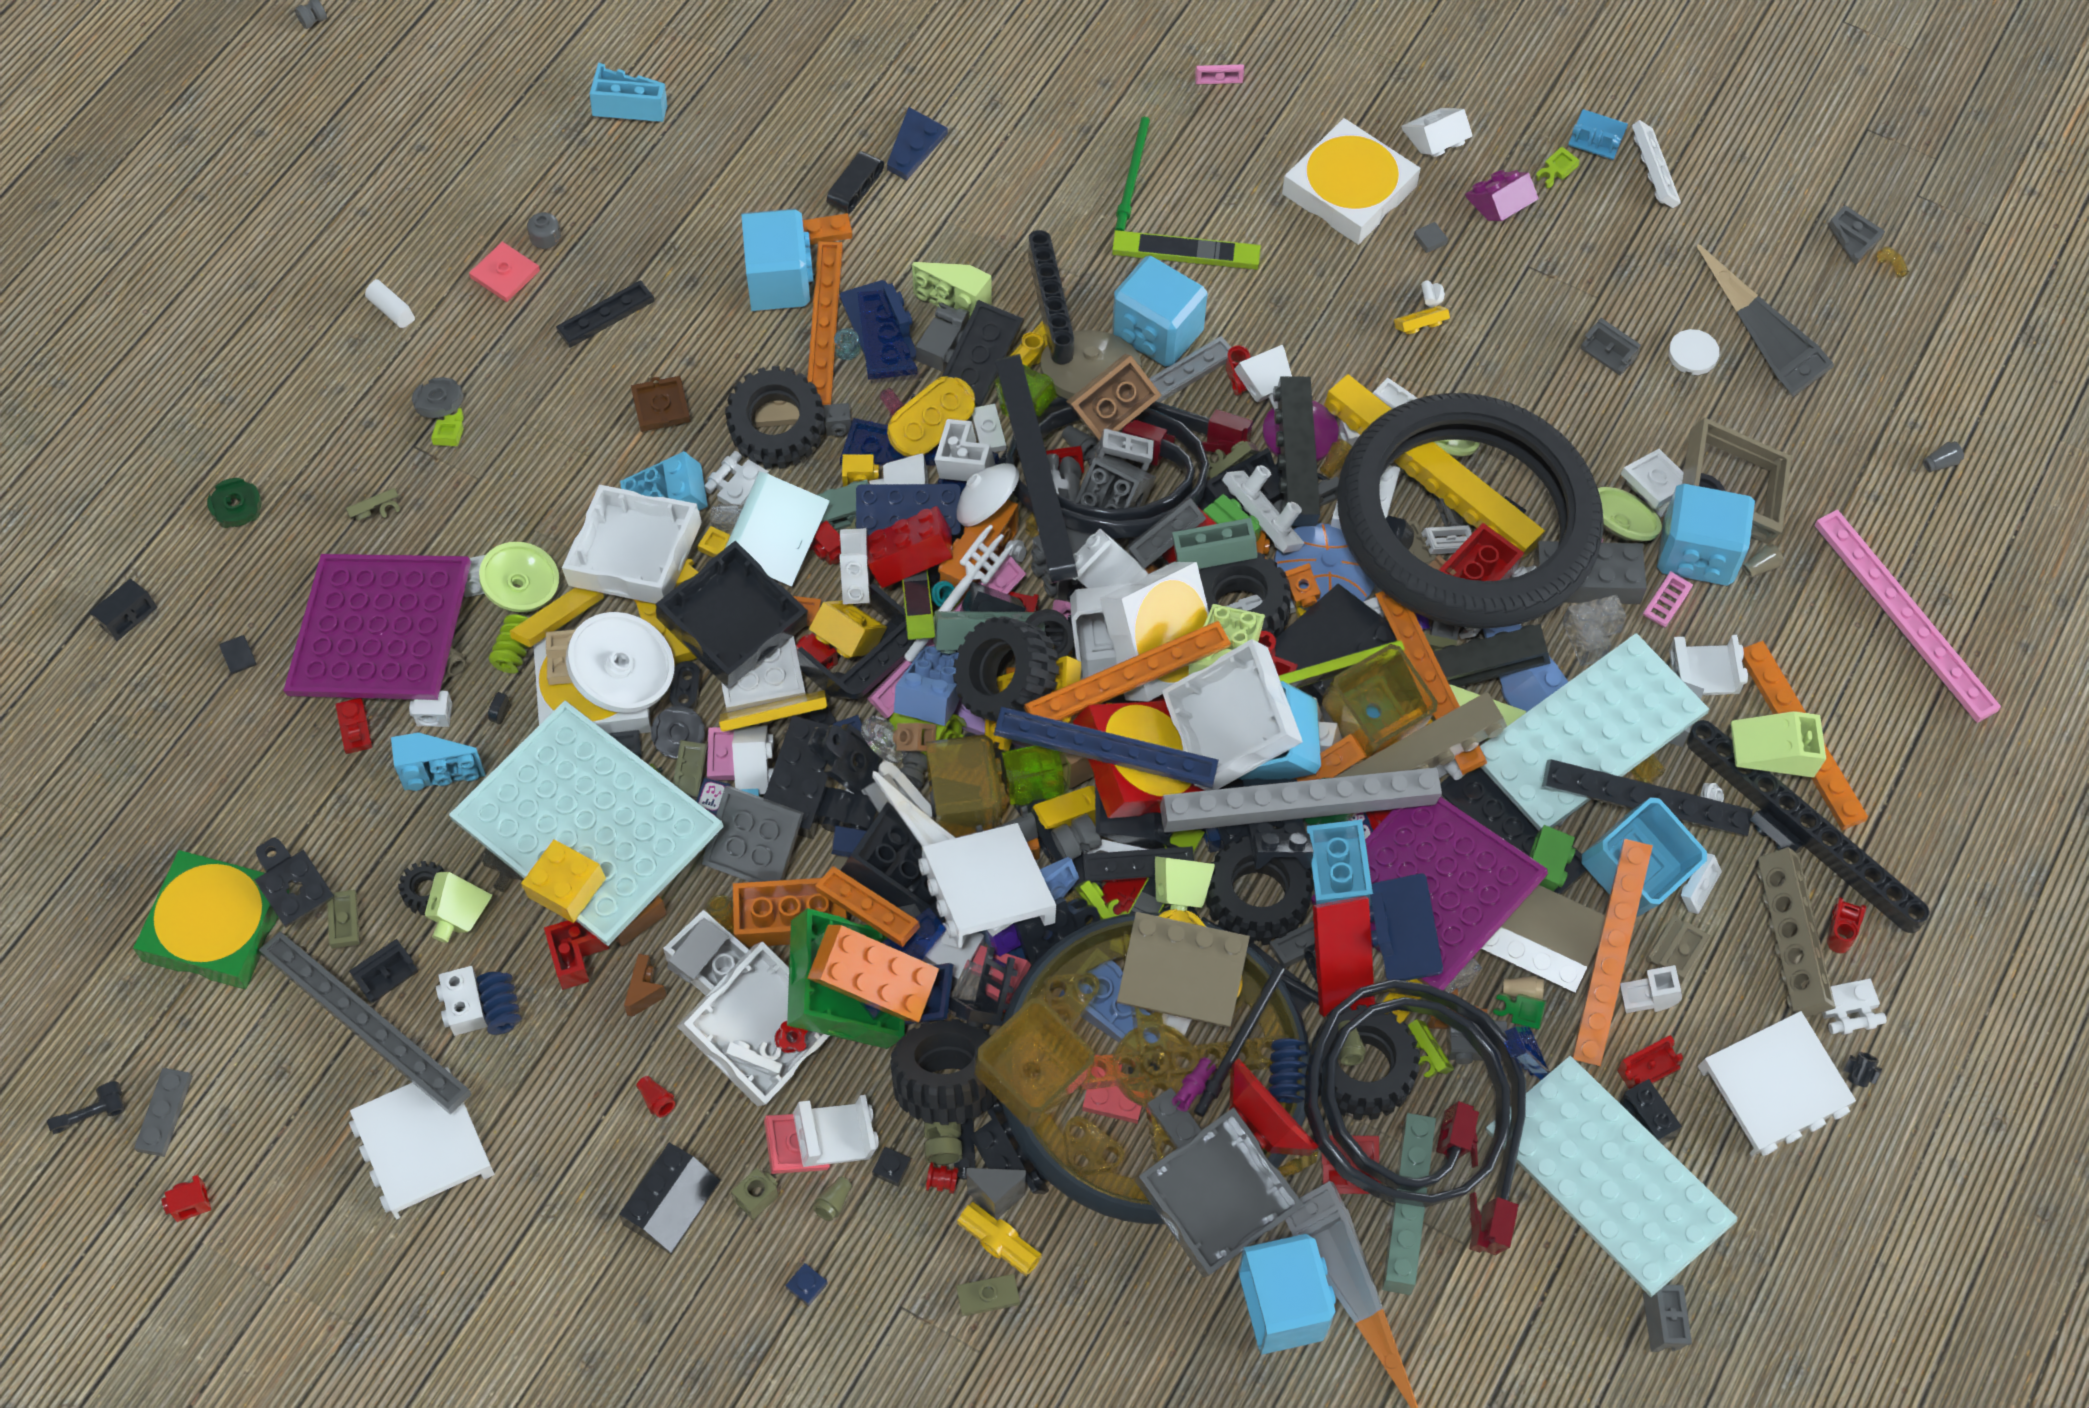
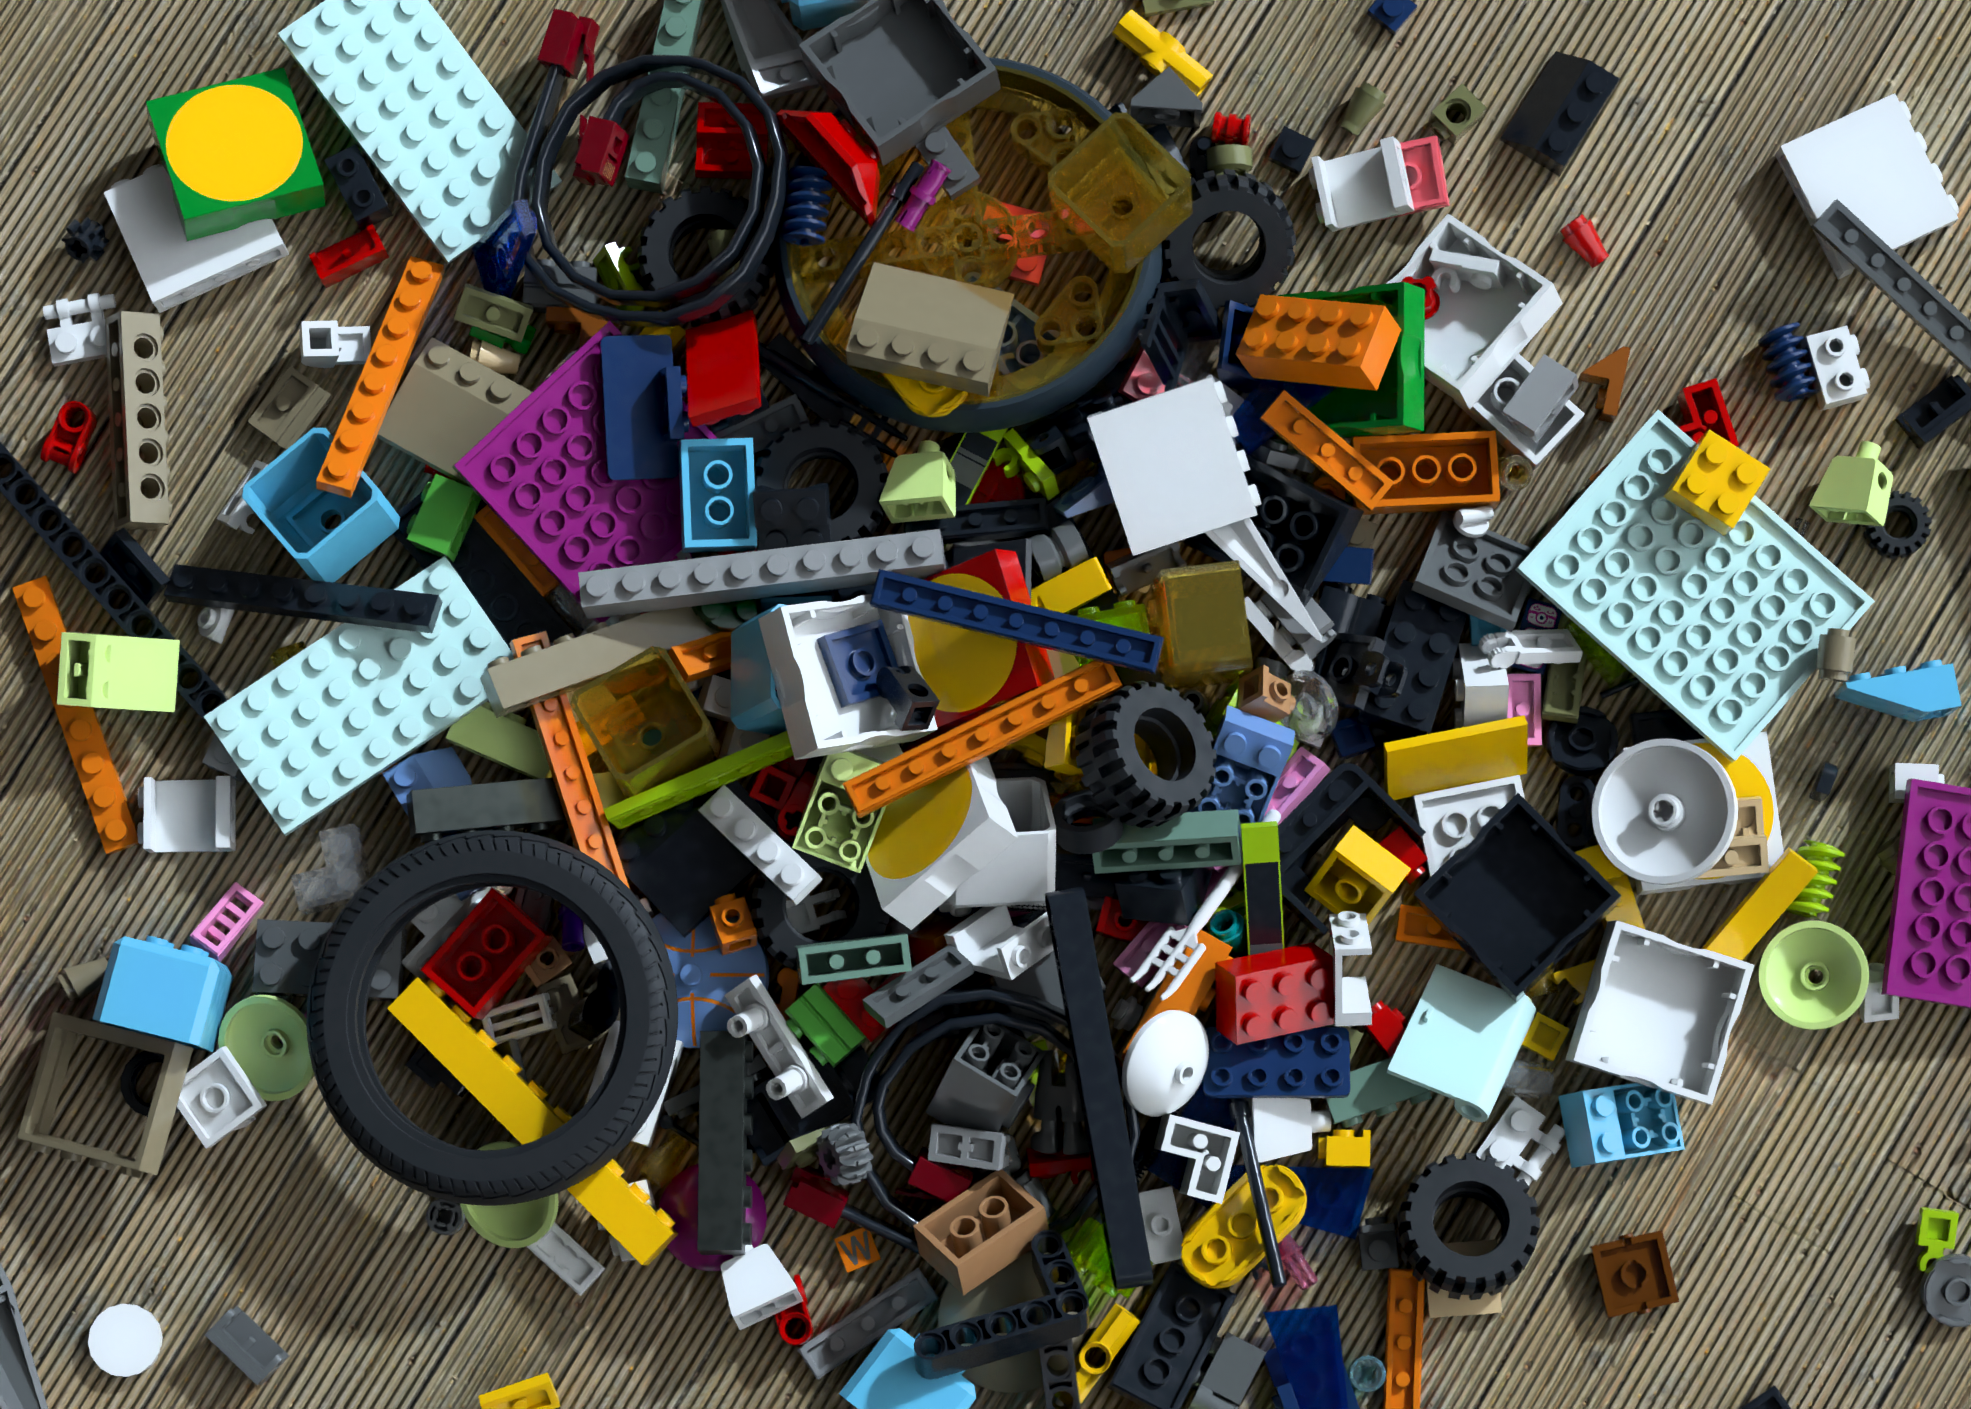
camera: 175 degrees left, 20 degrees up
(482, 767) = (1835, 655): none -> dark tan brick
(711, 783) = (1530, 647): none -> white hinge
(754, 873) = (1473, 521): none -> white plate
(920, 426) = (1240, 1113): none -> black bar
(1087, 329) = (1013, 1320): none -> black beam
(1186, 704) = (908, 696): none -> black leg
(1199, 406) = (857, 1249): none -> orange tile
(1212, 440) = (844, 1154): none -> dark grey gear
(1222, 730) = (855, 659): none -> dark blue tile
(1287, 622) = (760, 845): none -> white plate
(1529, 1009) = (493, 312): none -> olive plate
(1755, 1126) = (235, 153): none -> tile

